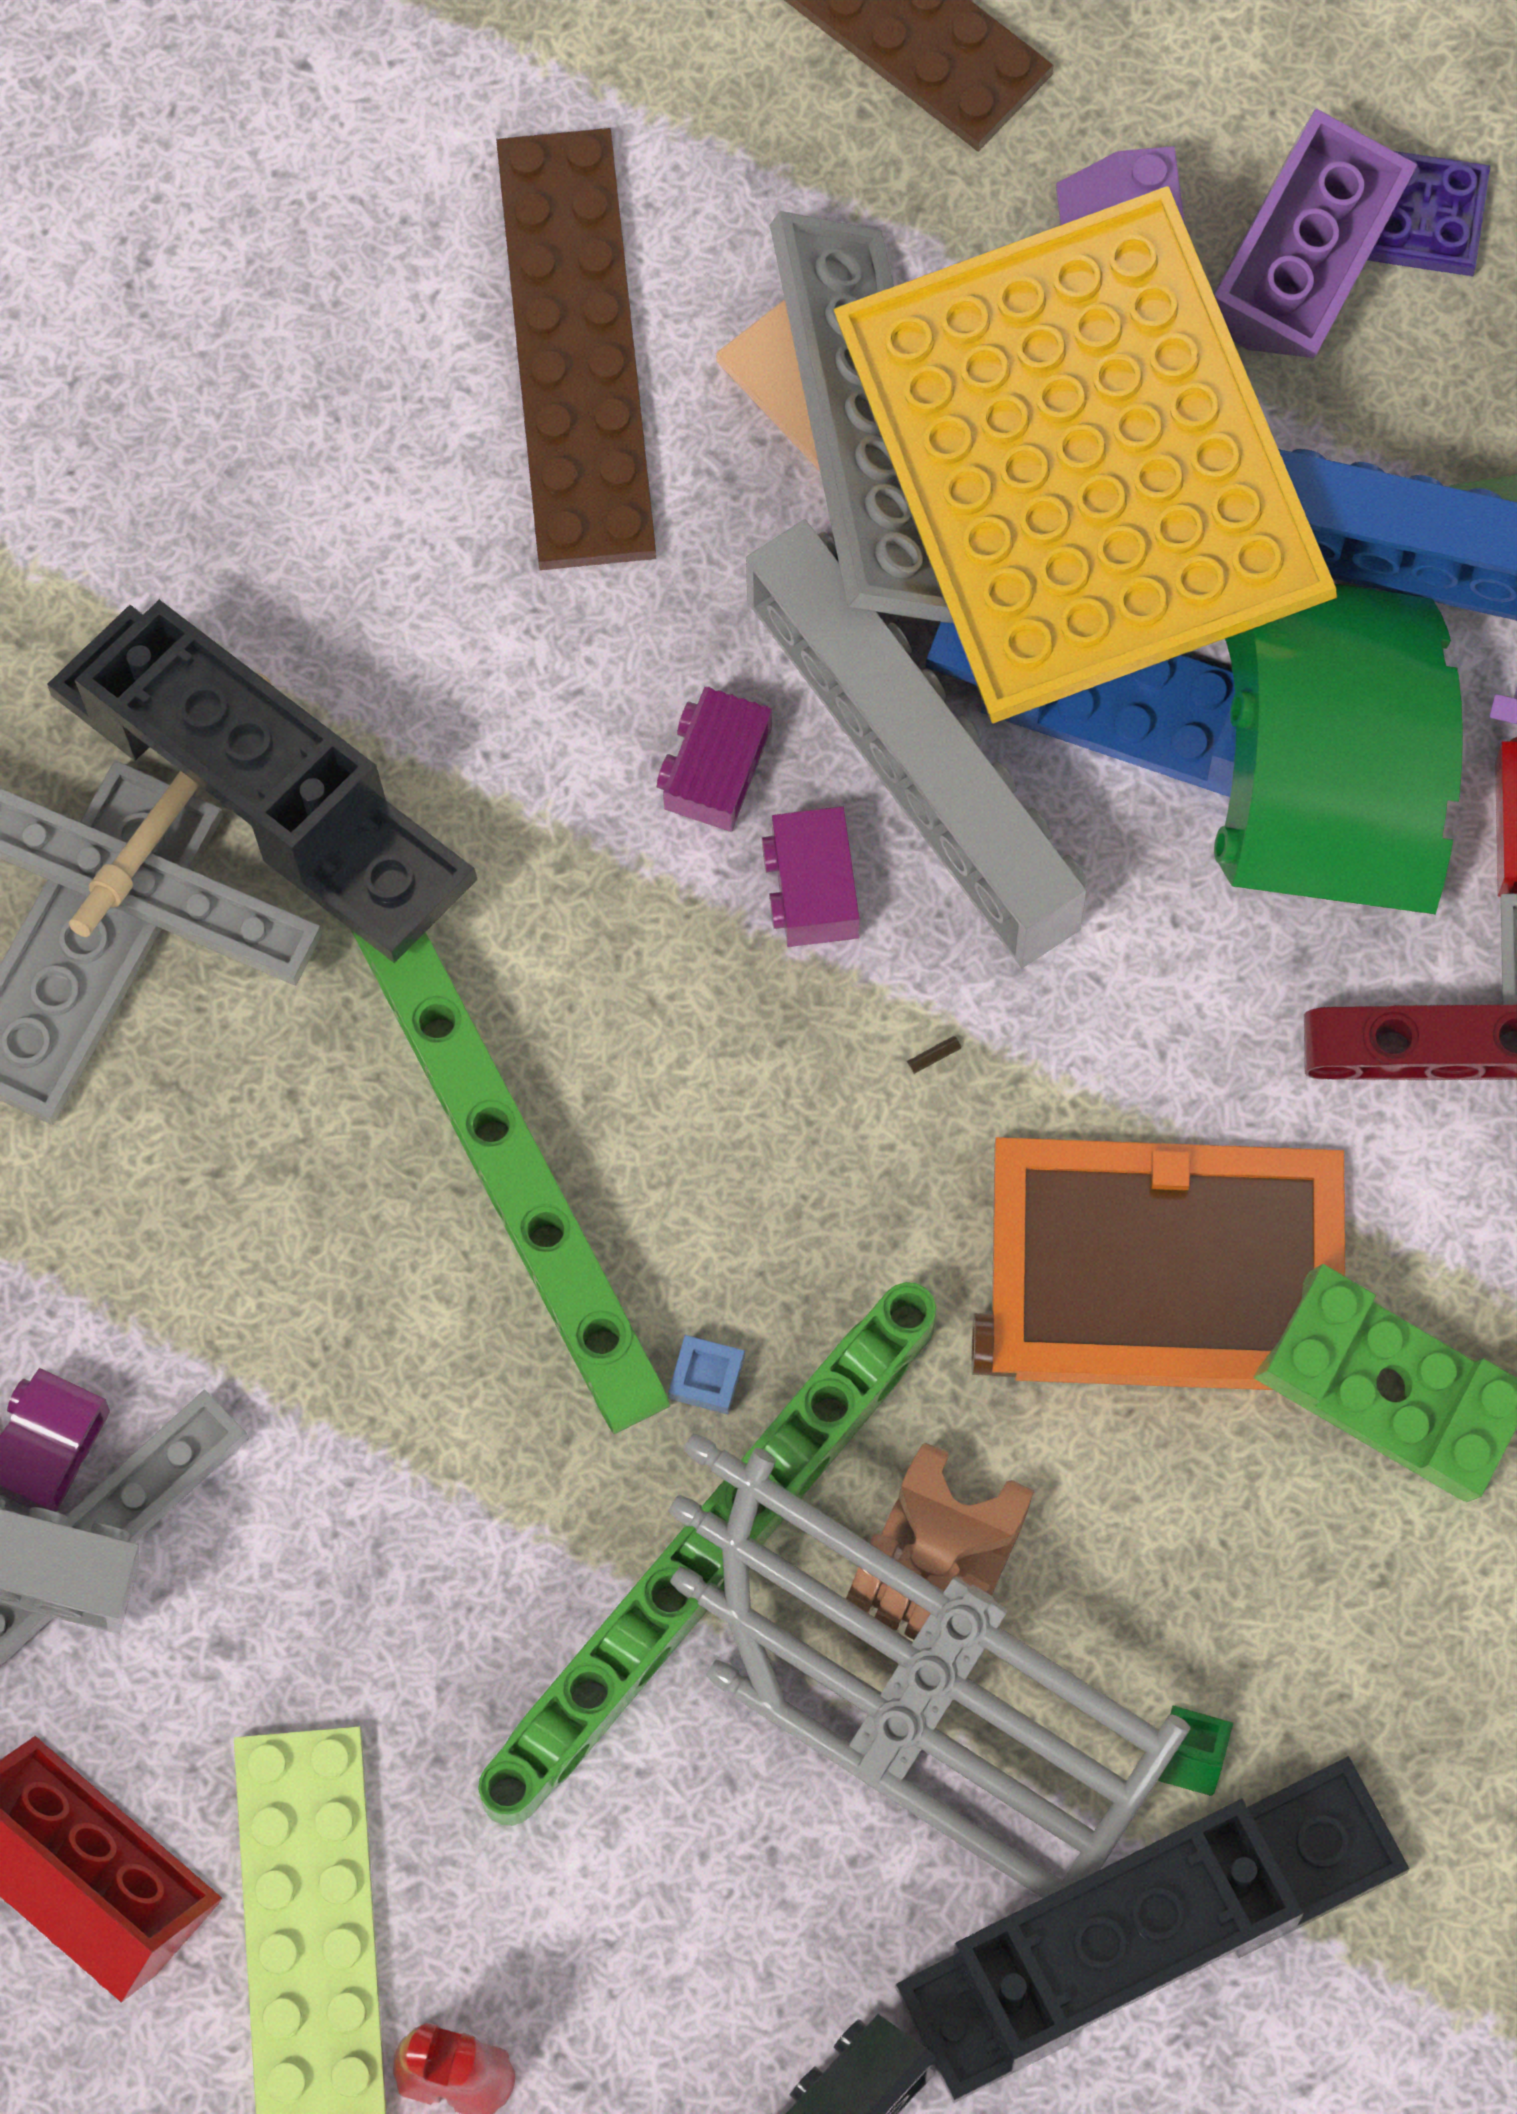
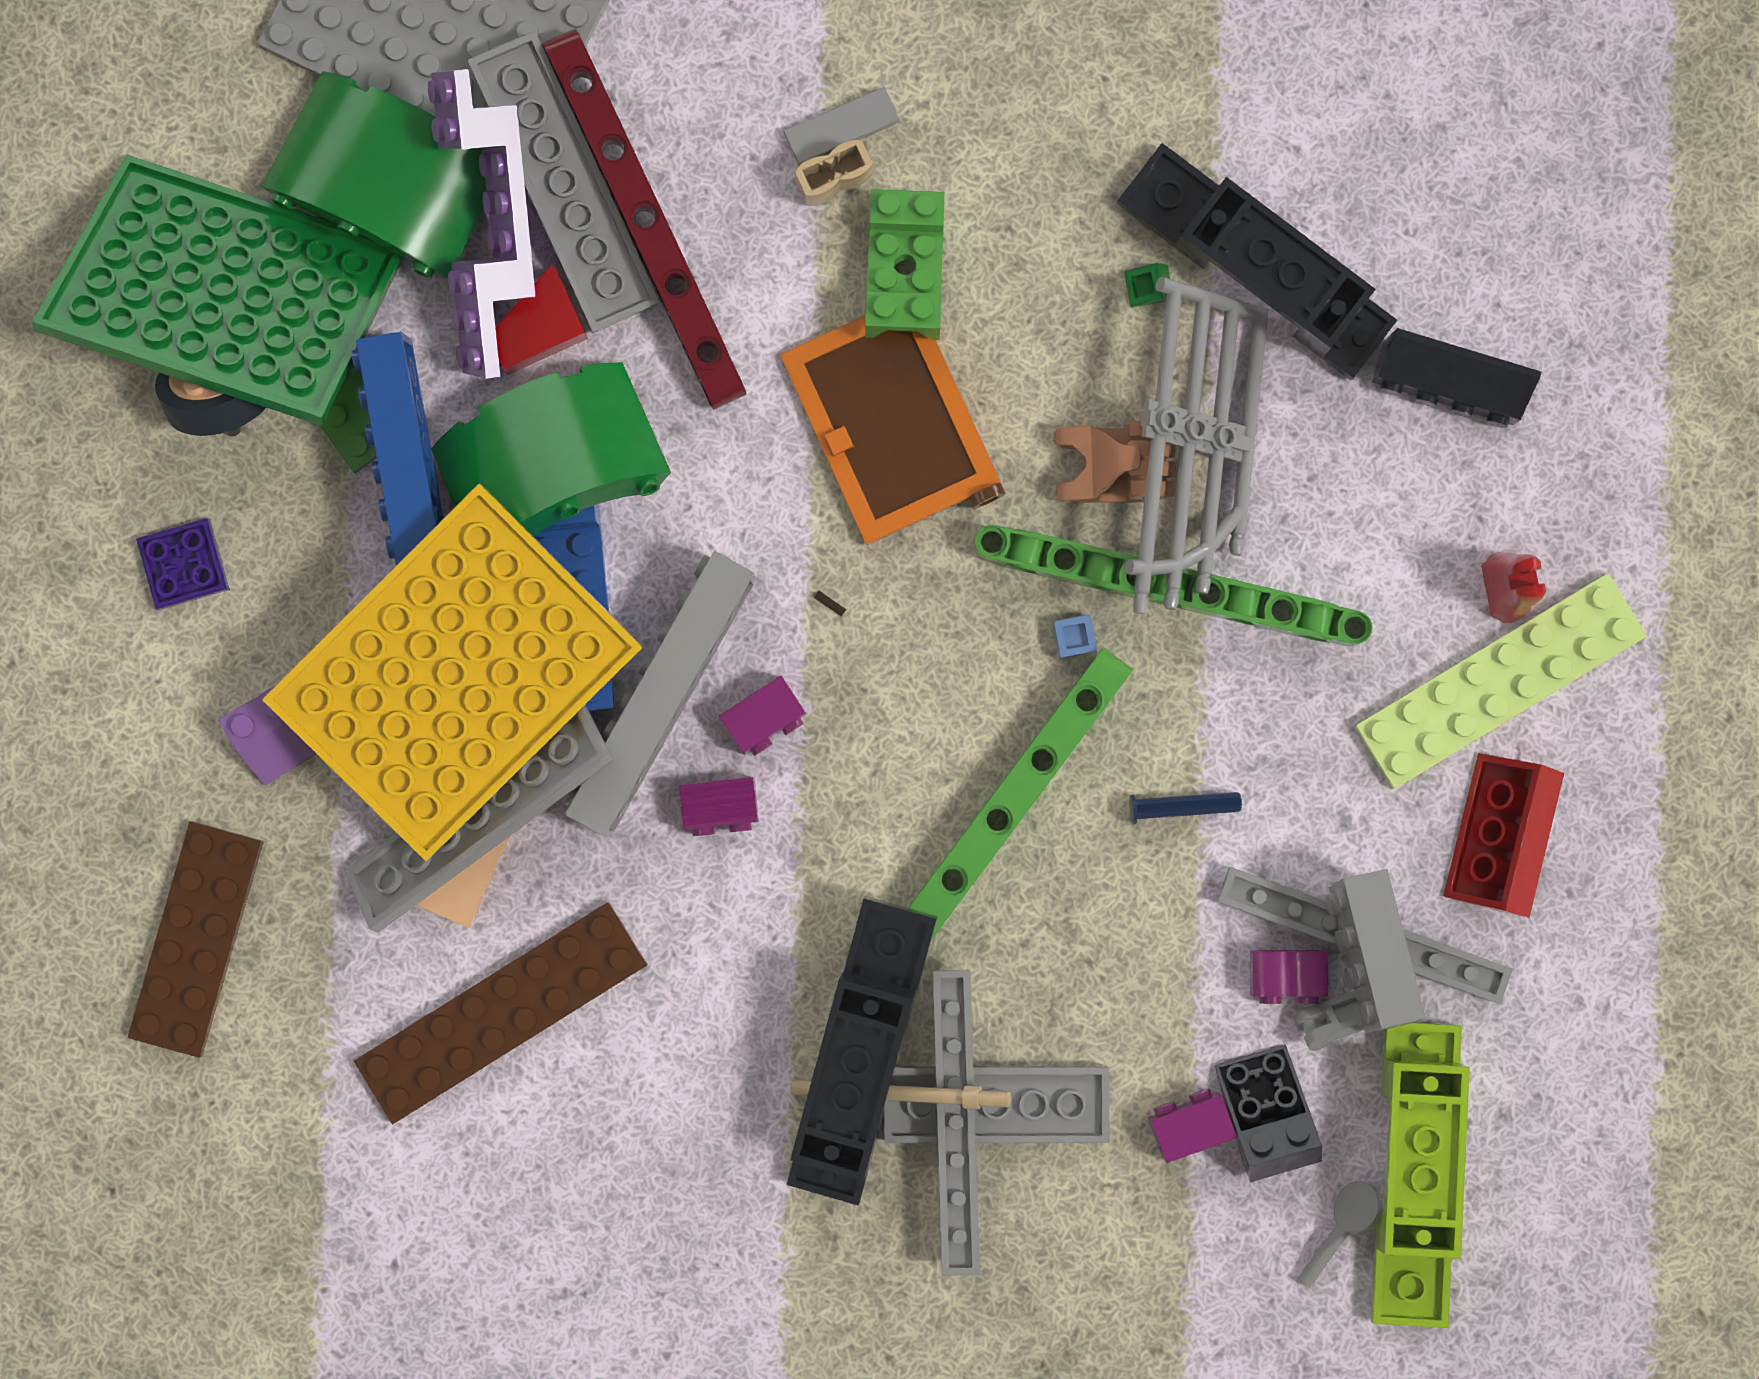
camera: 120 degrees left, 15 degrees up
(372, 1413) = (1184, 805): none -> dark blue axle
(1310, 238) = (238, 617): medium lavender slope -> none

